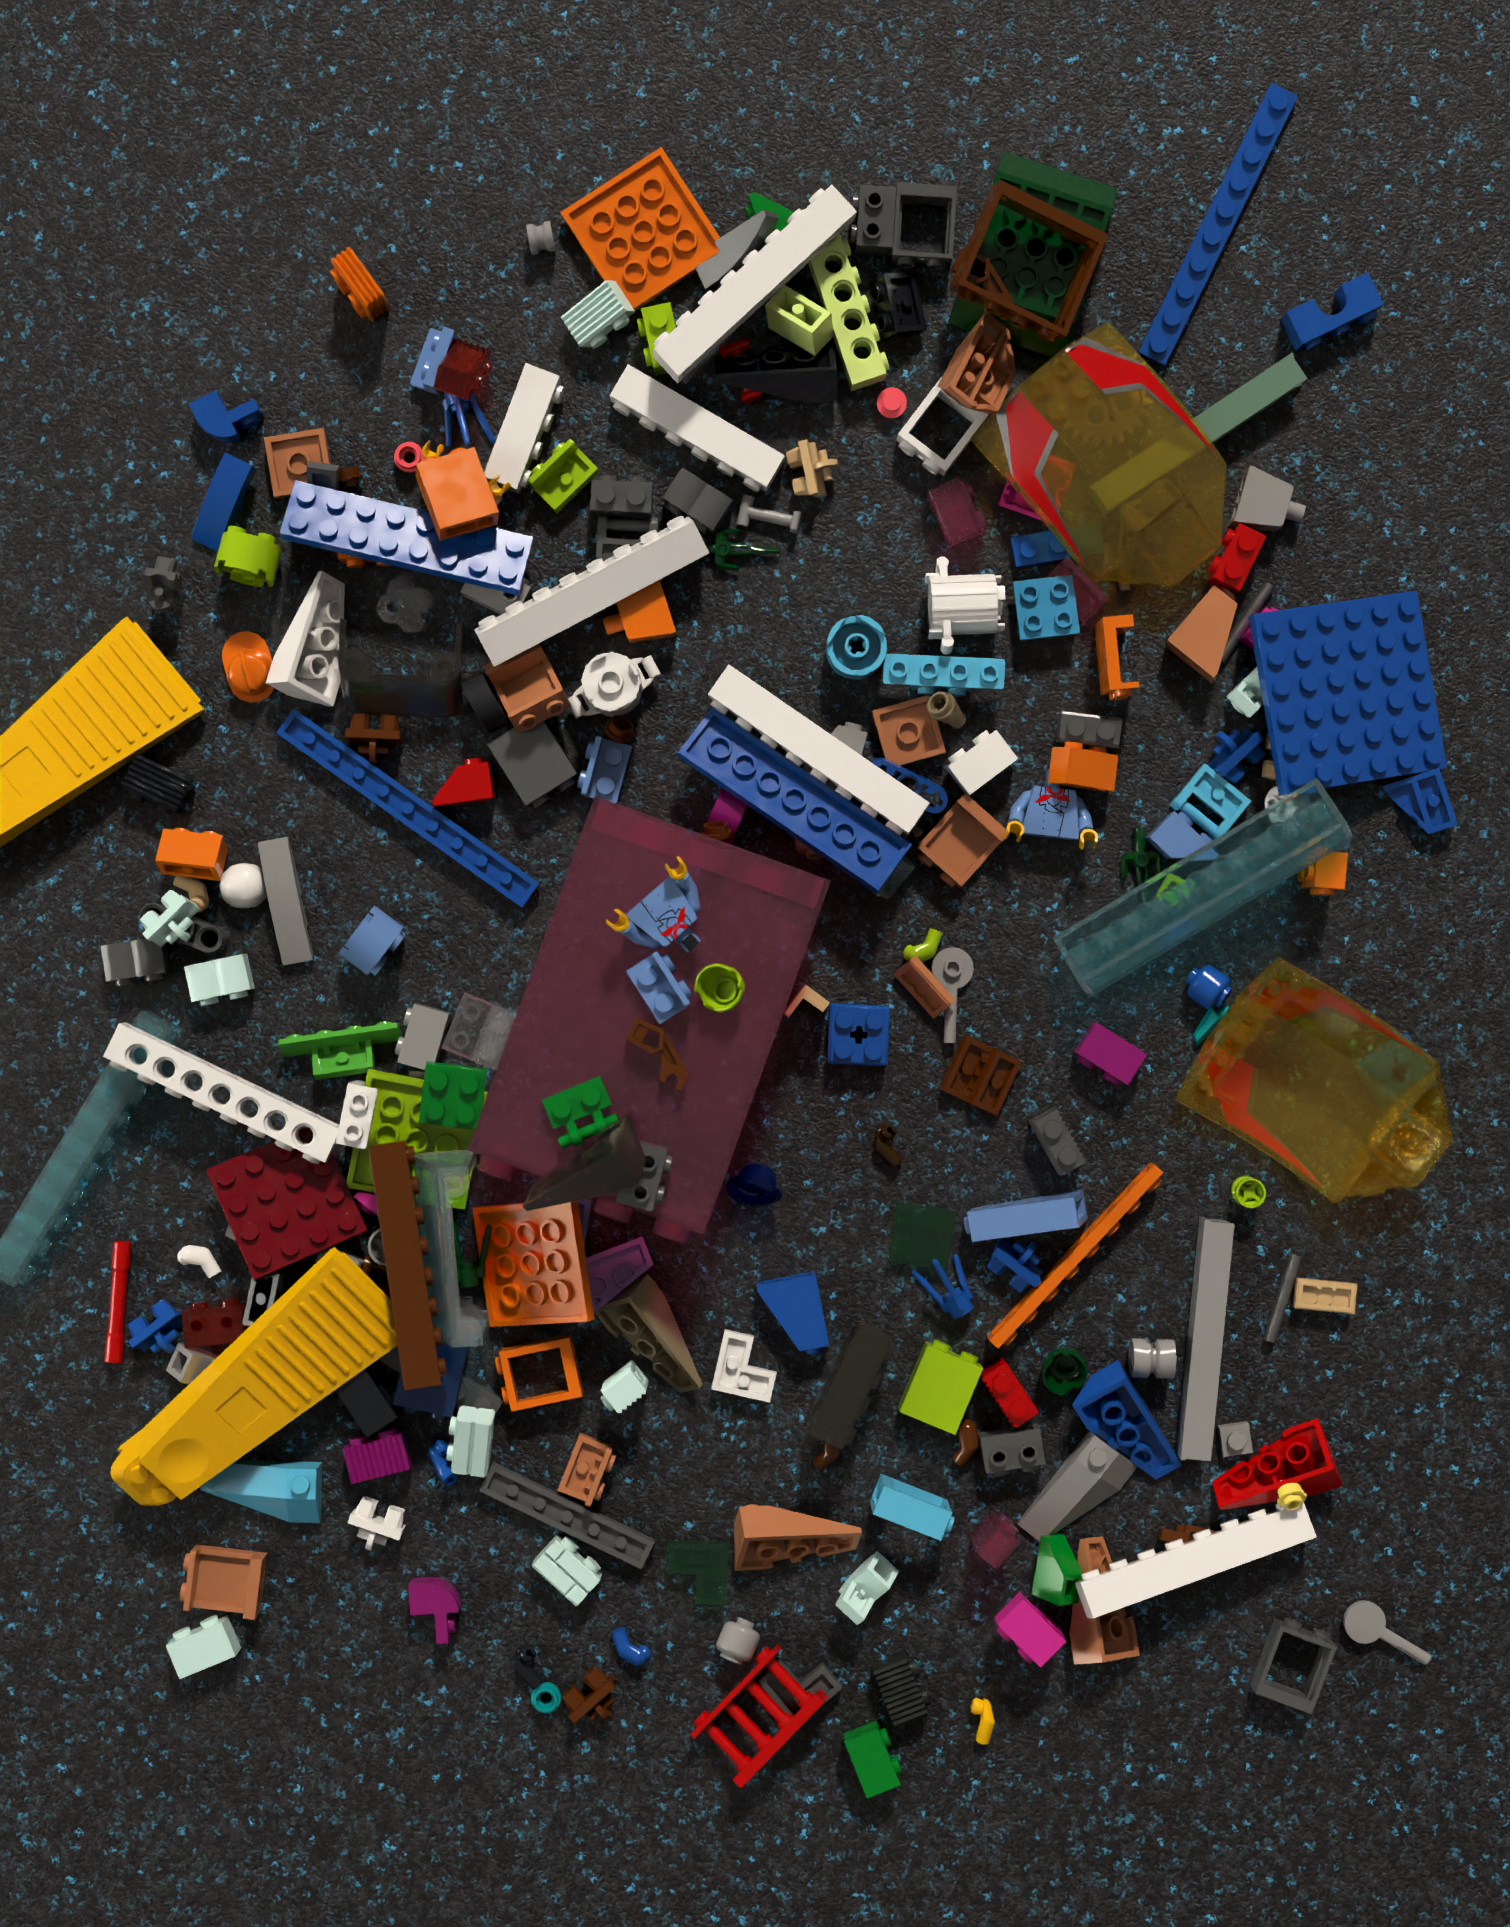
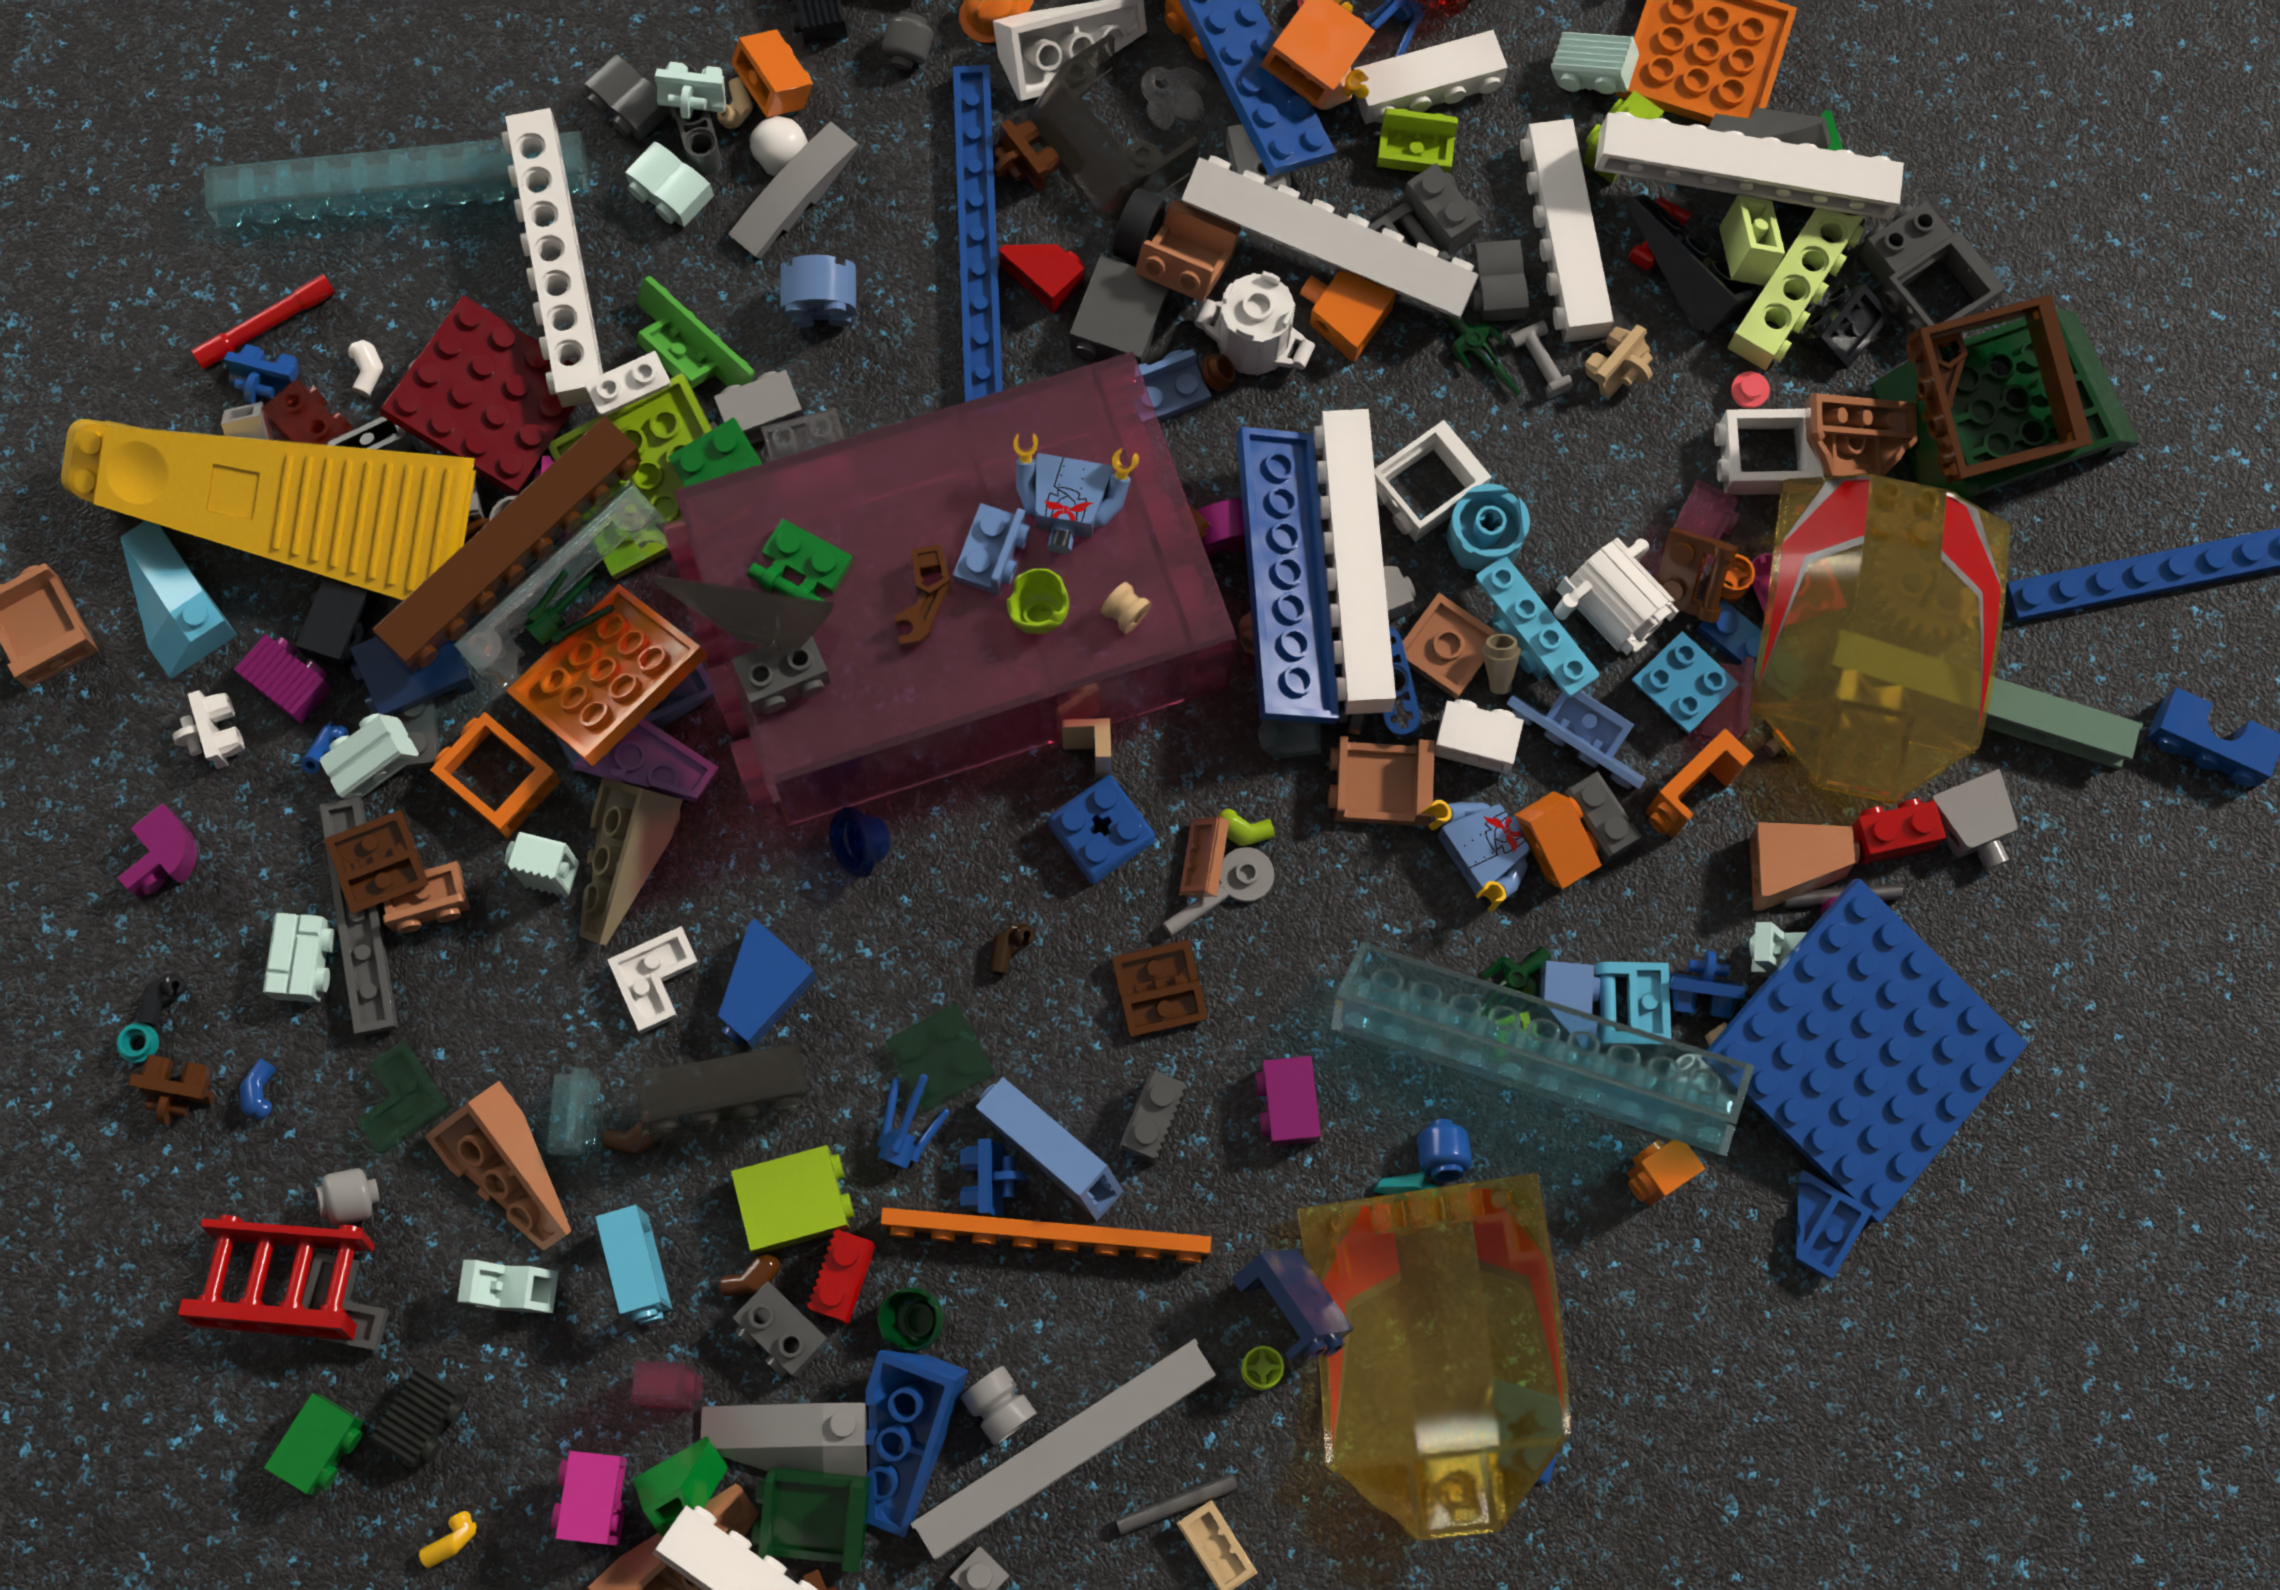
camera: 50 degrees right, 15 degrees down
(234, 747) = (907, 40): none -> dark grey head
(544, 1483) = (376, 861): none -> reddish brown slope
(763, 936) = (1125, 607): none -> tan wheel
(784, 1472) = (572, 1113): none -> clear light blue bracket
(796, 626) = (1453, 454): none -> white window
(977, 550) = (1683, 568): none -> reddish brown plate
(1007, 517) = (1740, 576): none -> orange wheel
(1026, 692) = (1587, 727): none -> medium blue bracket
(1131, 1509) = (813, 1516): none -> dark green panel
(1233, 1144) = (1300, 1299): none -> dark blue panel

